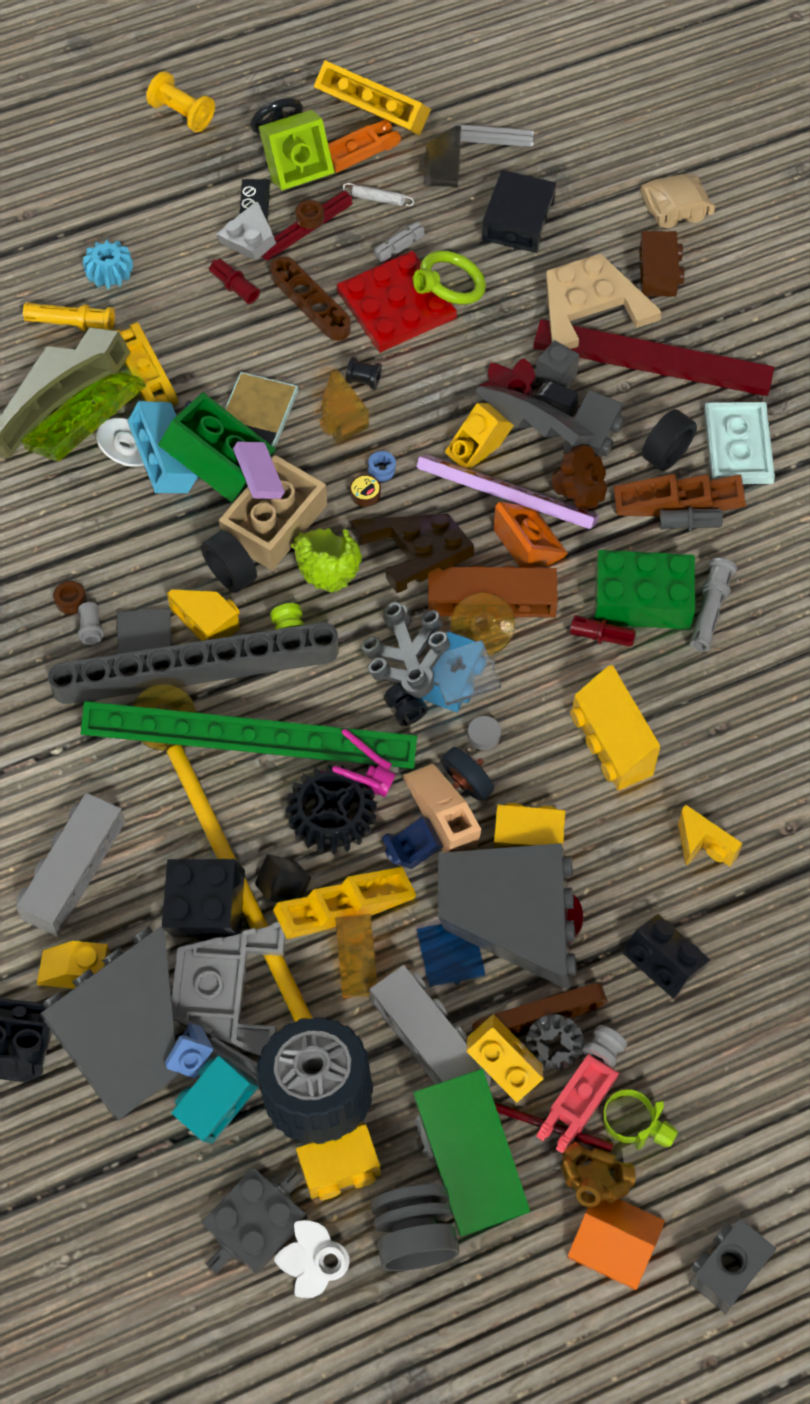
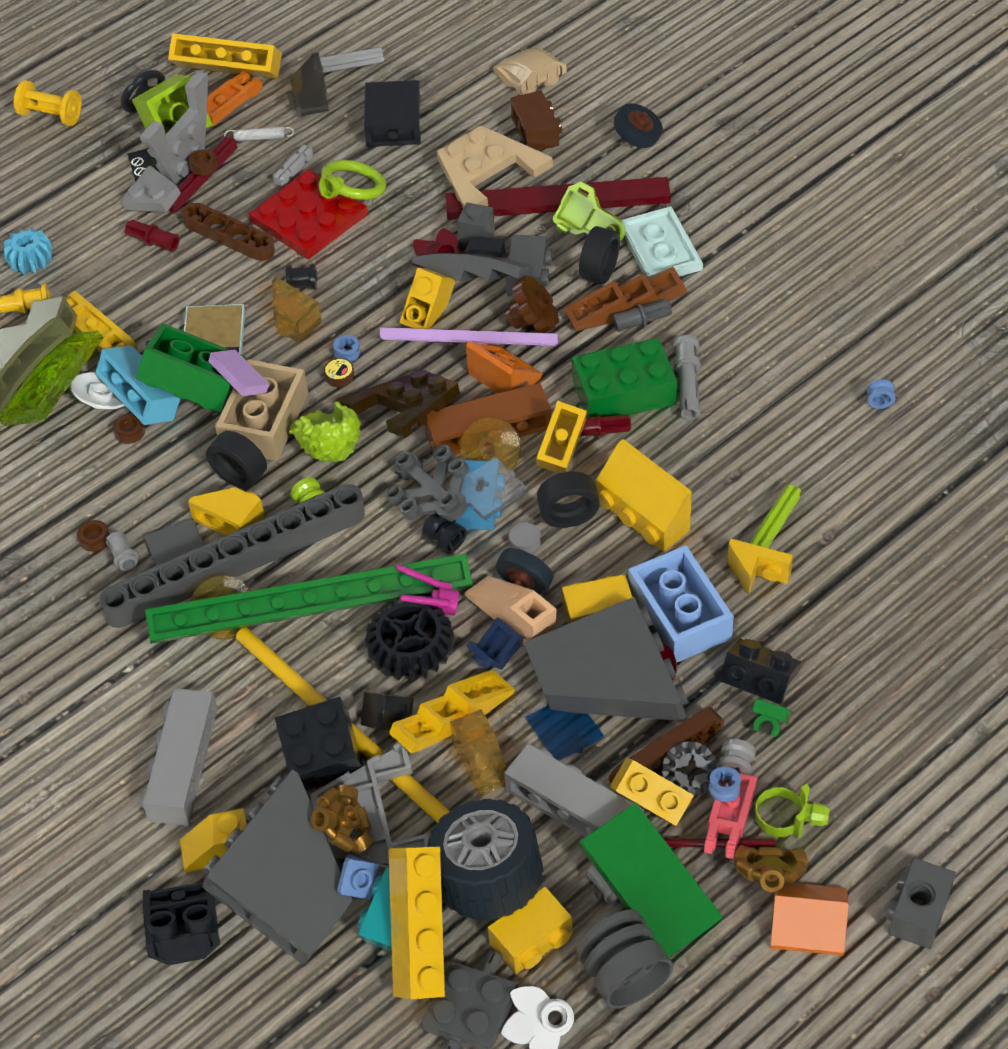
camera: 15 degrees left, 10 degrees down
(140, 490) = (128, 429): none -> reddish brown tile
(188, 985) = (343, 813): none -> pearl gold piece
(225, 1125) = (416, 922): none -> yellow brick
(298, 184) = (185, 137): none -> light grey wing
(538, 708) = (566, 485): none -> black tyre
(555, 638) = (561, 438): none -> yellow brick
(587, 1063) = (722, 775): none -> medium blue bush
(609, 859) = (681, 603): none -> light blue brick
(659, 1007) = (771, 713): none -> green tile
(670, 386) = (582, 212): none -> lime piece
(742, 792) = (776, 516): none -> lime axle
(764, 298) = (638, 125): none -> black wheel

